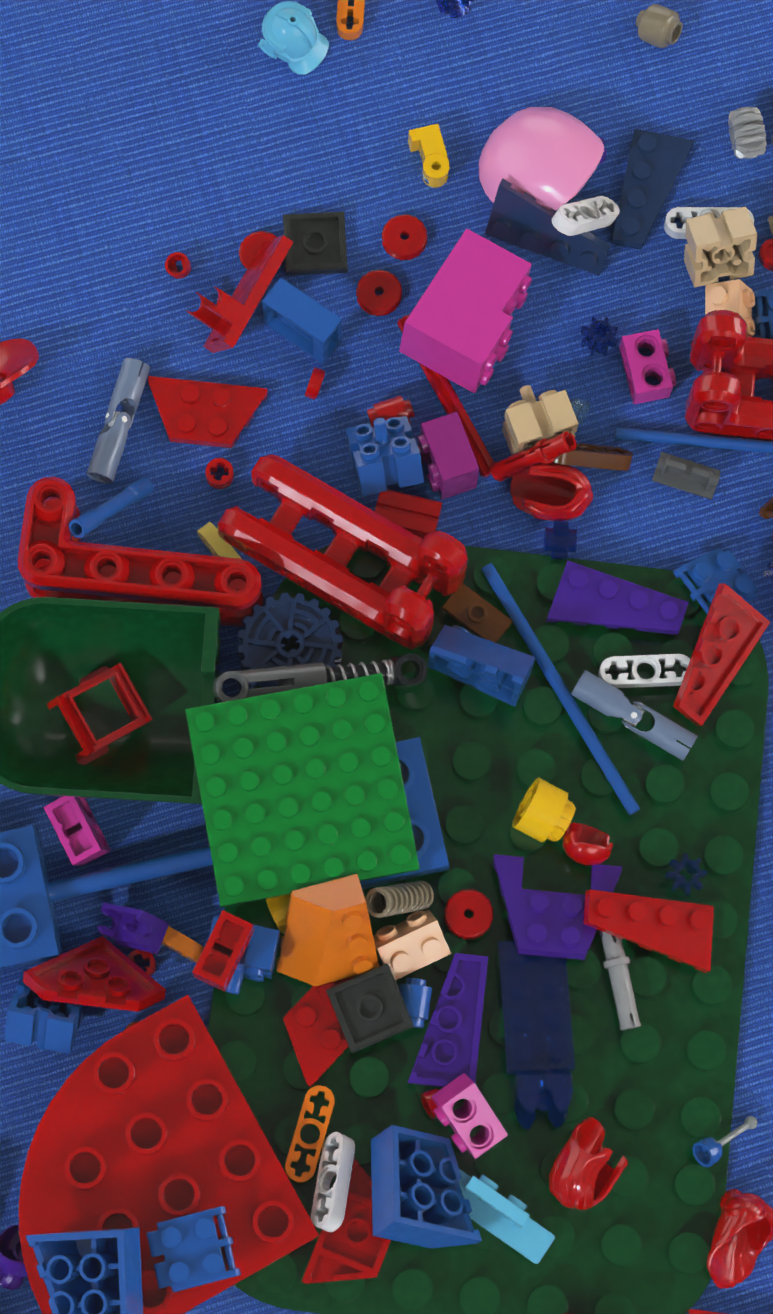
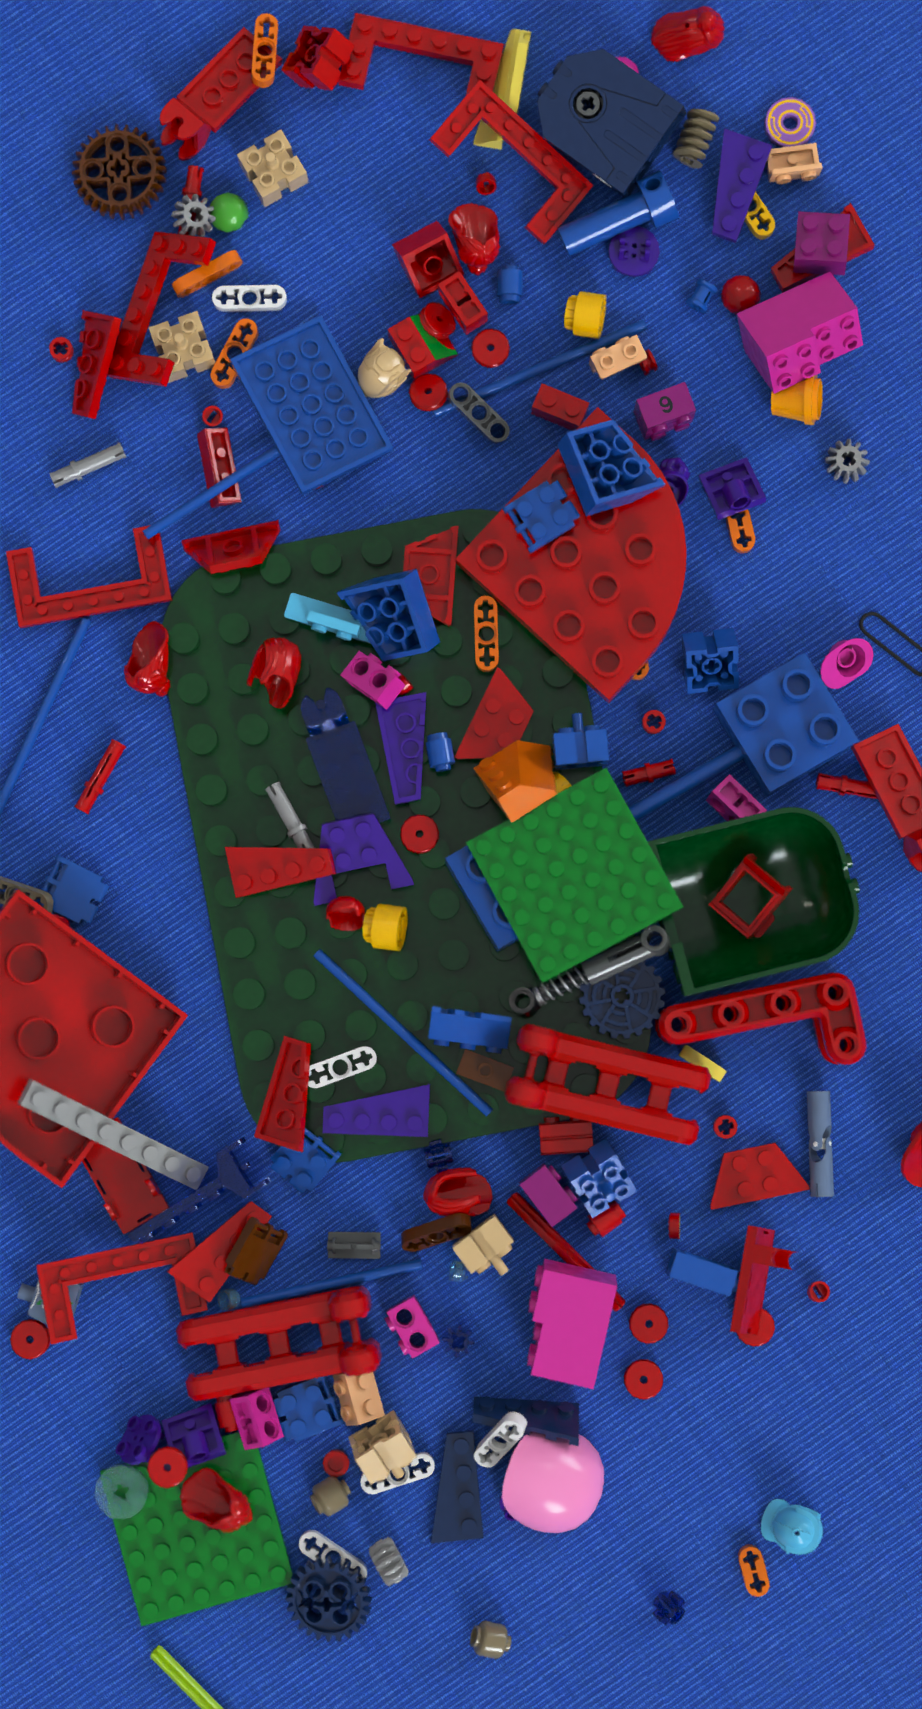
camera: 170 degrees right, 10 degrees up
(92, 519) = (809, 1041): blue piece -> none
(96, 977) = (682, 695): red plate -> none
(134, 928) = (666, 743): dark purple hinge -> none
(168, 904) = (648, 772): none -> red pin
(182, 945) = (635, 746): orange beam -> none
(223, 950) = (592, 731): red brick -> none
(317, 243) = (714, 1349): pearl dark grey tile -> none
(328, 1203) = (456, 577): white beam -> none
(370, 1008) = (470, 735): pearl dark grey tile -> none
(399, 898) = (474, 821): dark tan piece -> none
(411, 943) = (456, 795): light nougat bracket -> none
(432, 152) = (637, 1449): yellow leg -> none
(543, 452) = (474, 1216): red pin -> none
(613, 703) = (353, 1030): sand blue piece -> none
(692, 868) = (256, 911): clear blue gear -> none
(714, 1147) = (188, 714): blue hinge -> none

